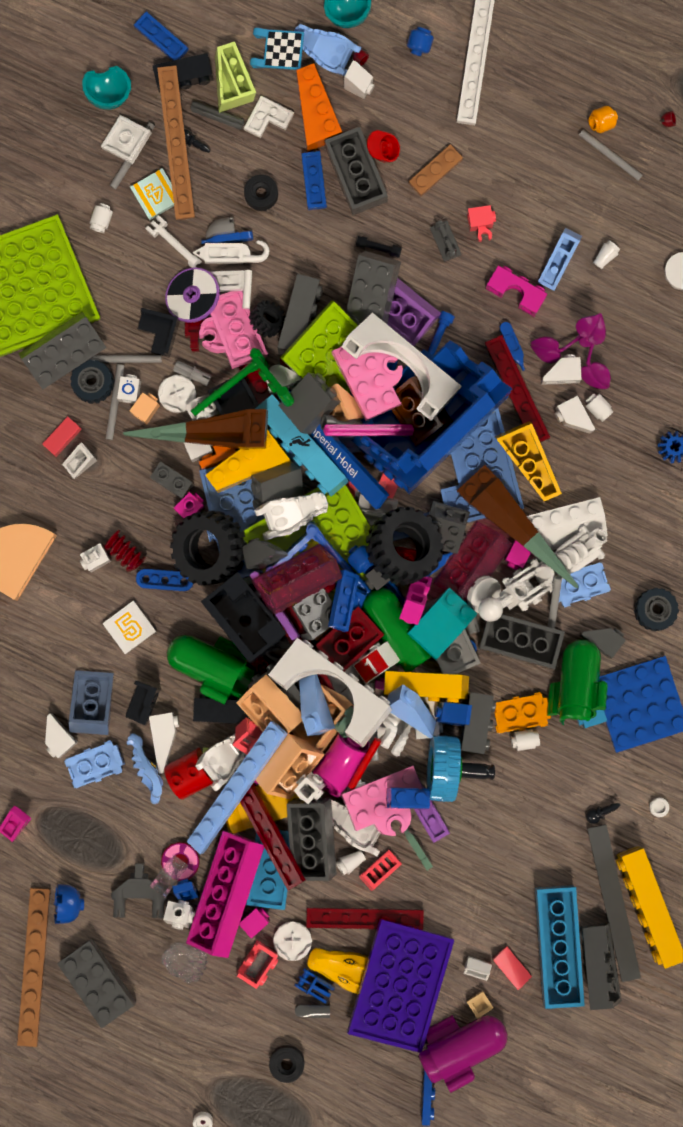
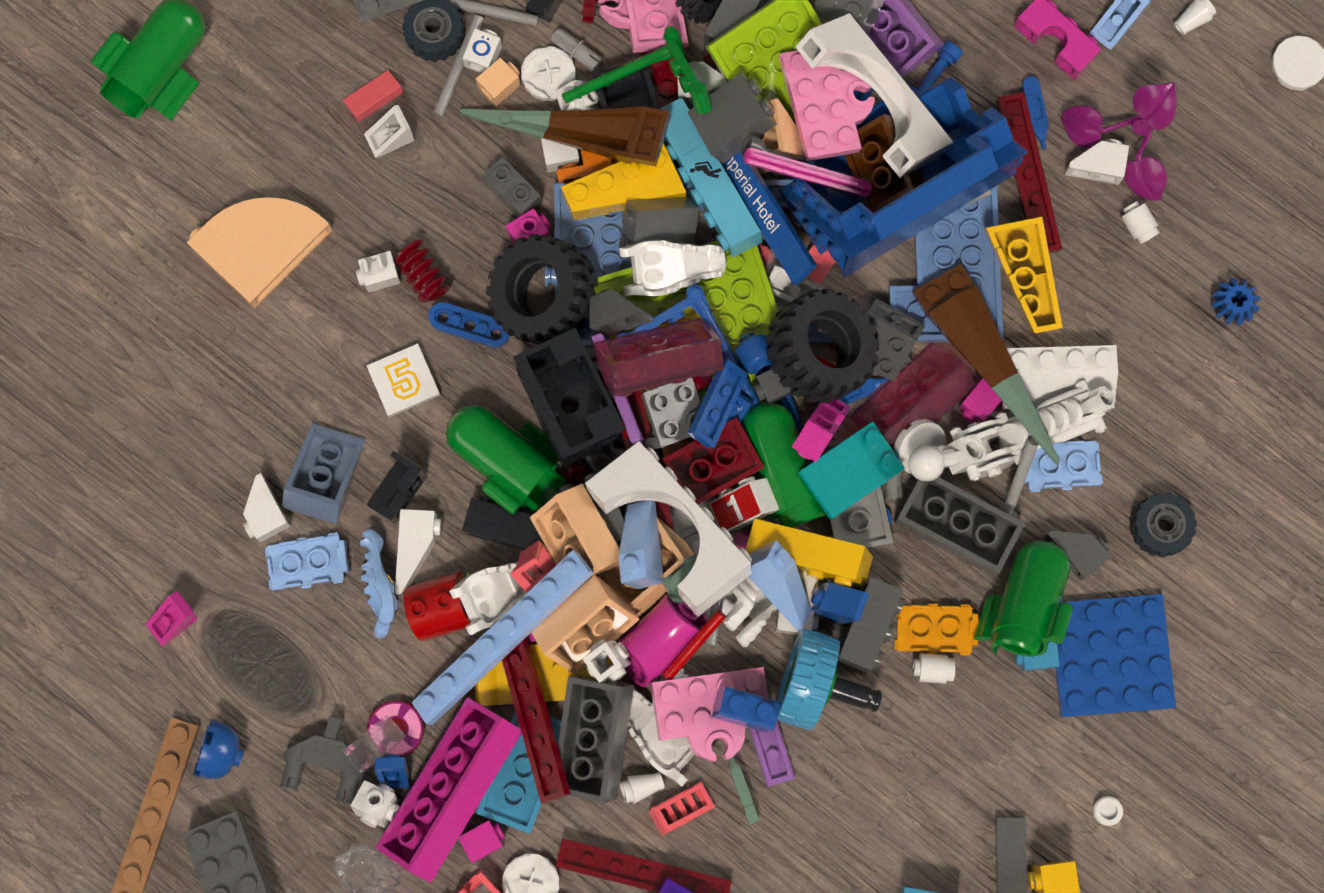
camera: 10 degrees right, 5 degrees down
(574, 415) = (1103, 226): white slope -> none
(594, 815) = (1010, 801): black bar -> none

